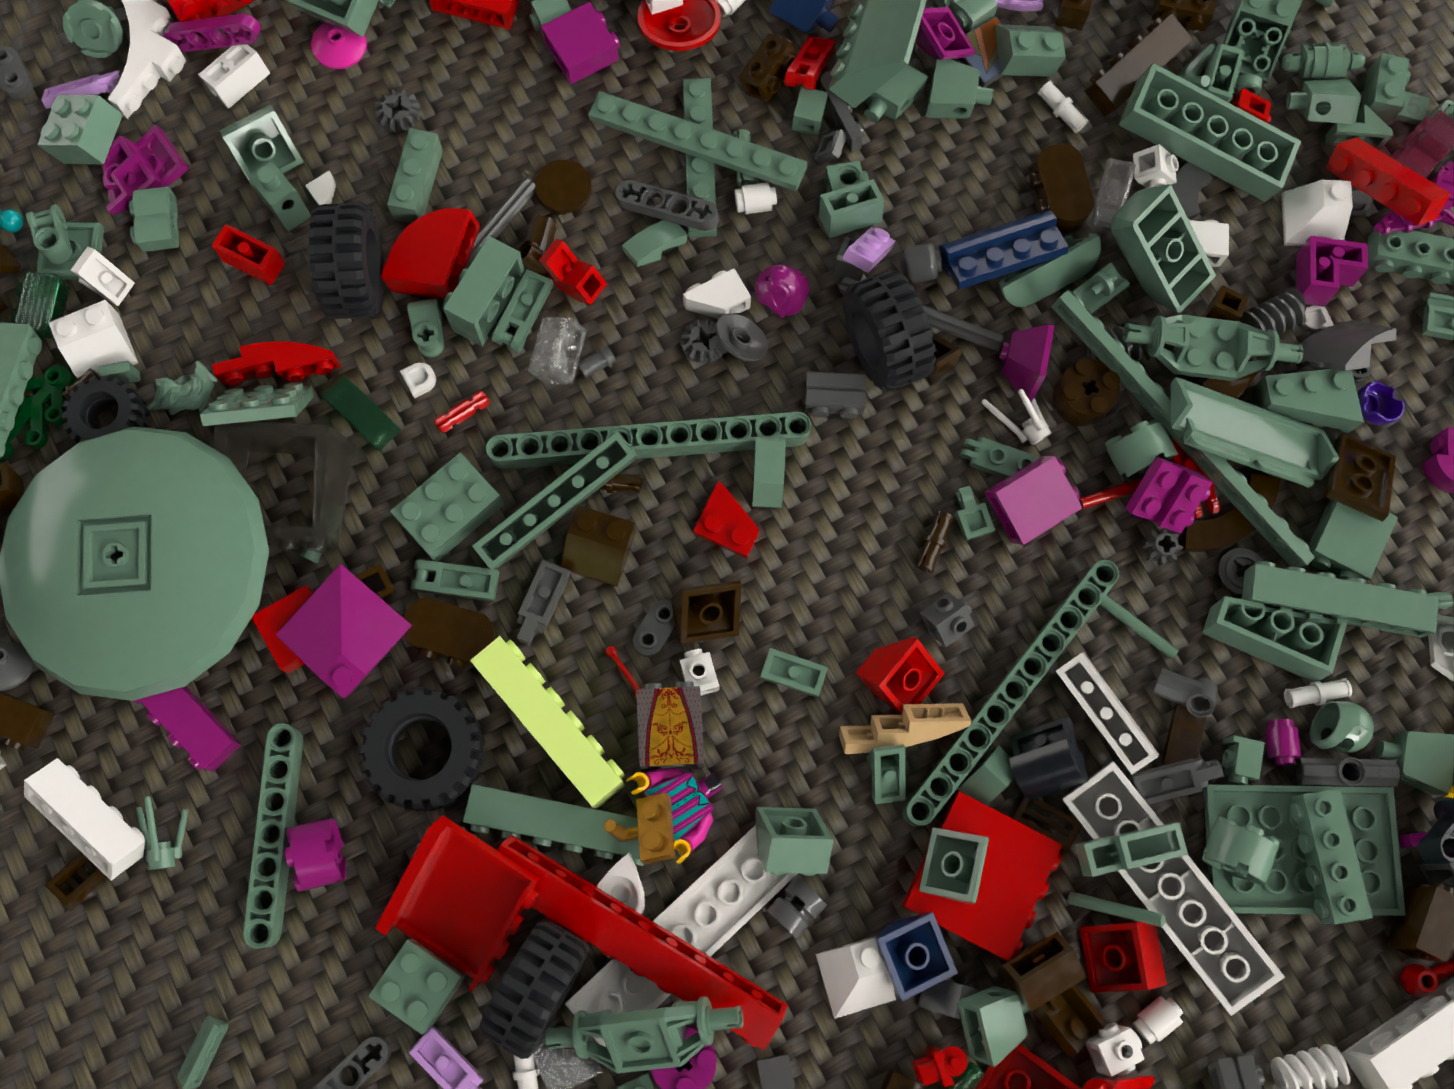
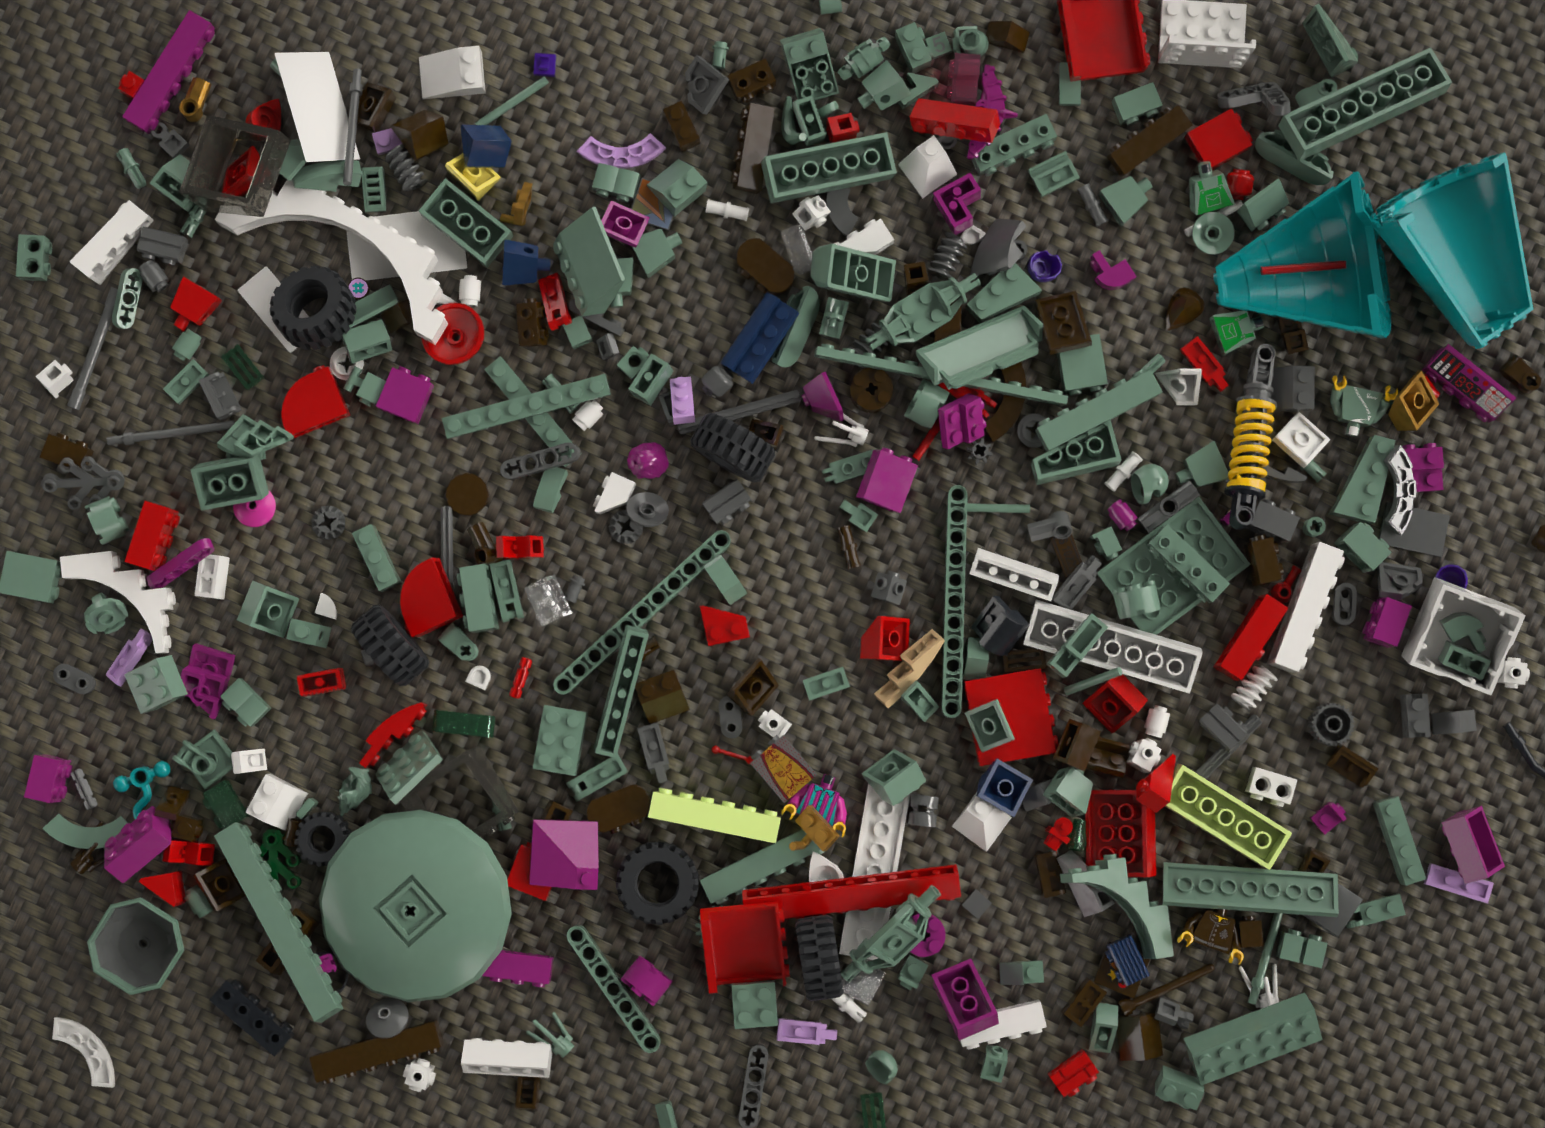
camera: 30 degrees left, 10 degrees up
(1351, 1005) = (1250, 637): none -> red brick

